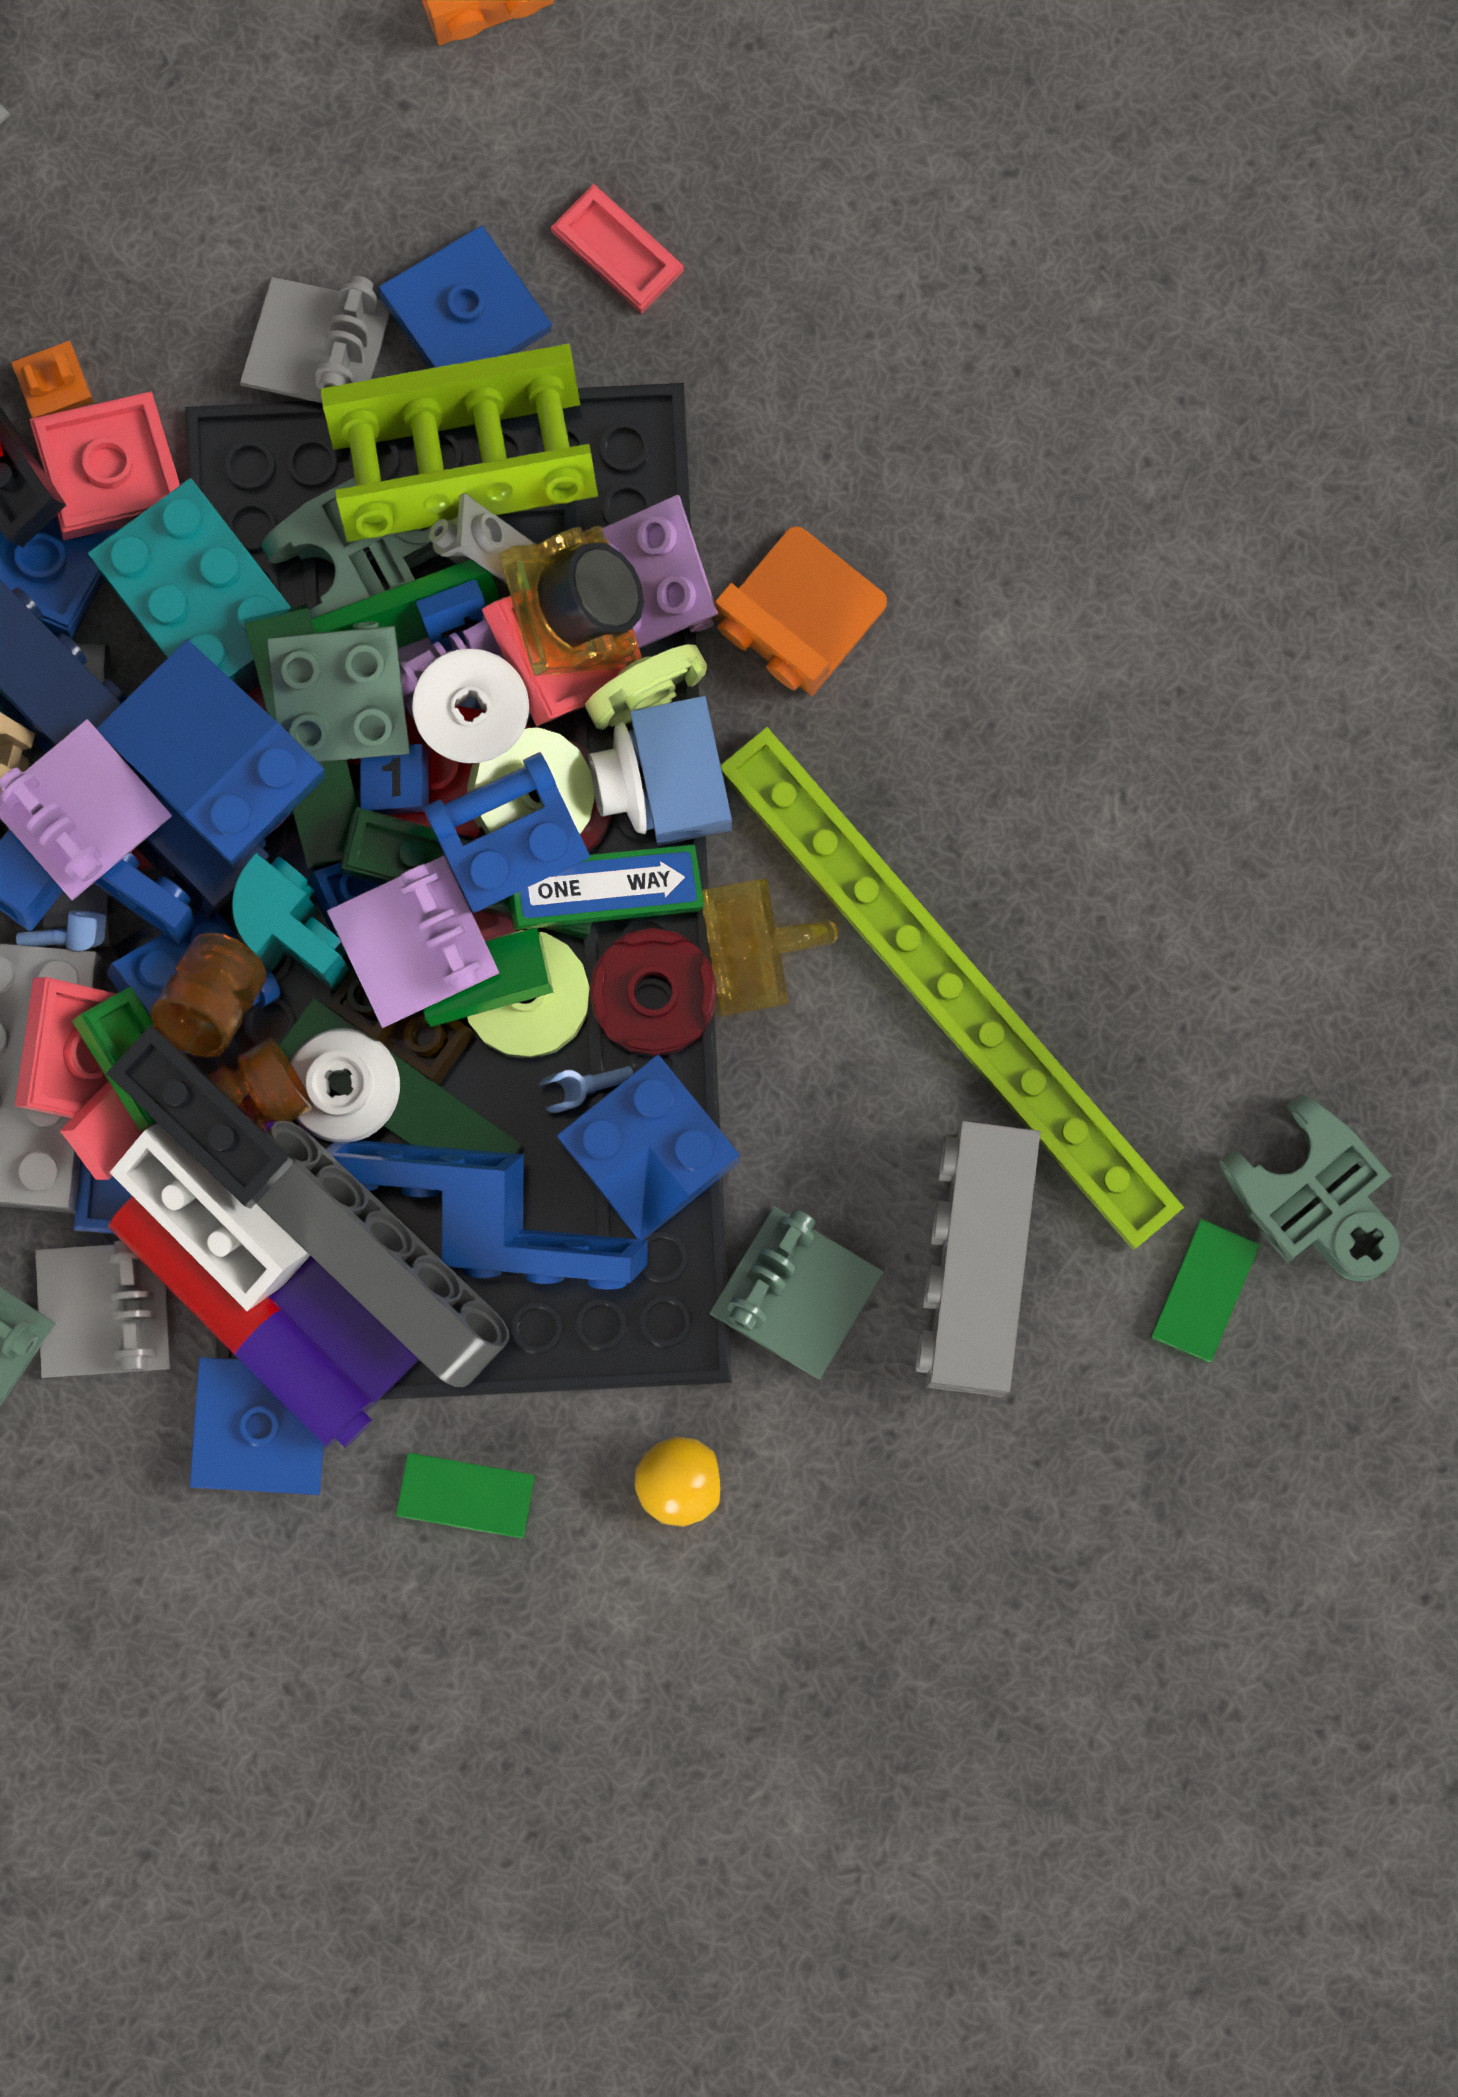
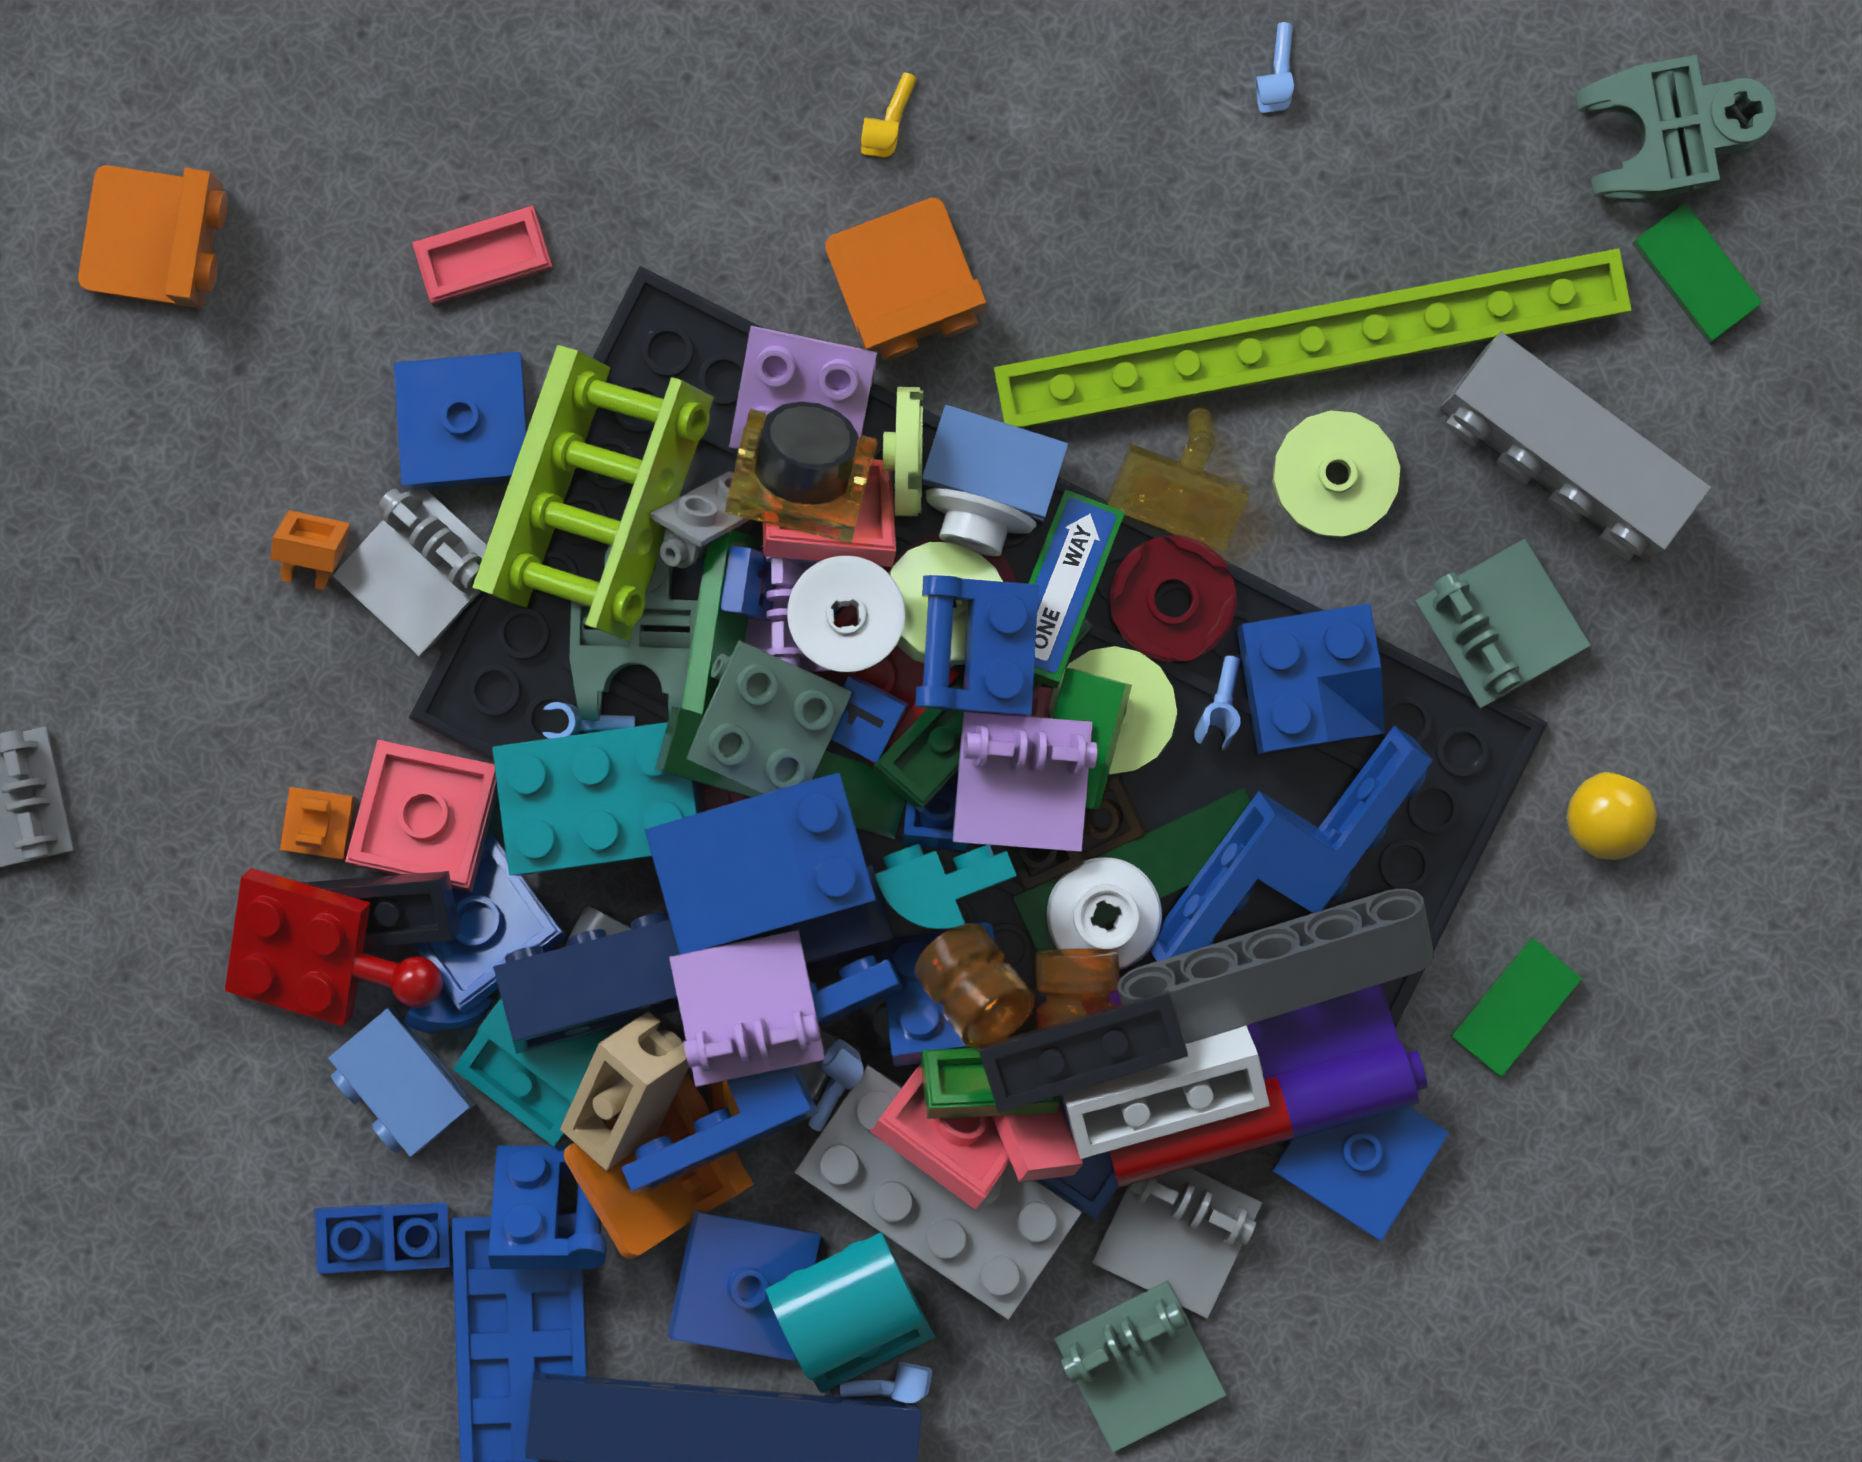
camera: 60 degrees left, 5 degrees up
(253, 546) = (576, 725): none -> light blue hand
(286, 241) = (309, 543): none -> orange tile
(841, 1109) = (1315, 501): none -> yellowish green plate
(913, 523) = (881, 136): none -> yellow hand
(1150, 835) = (1276, 90): none -> light blue hand

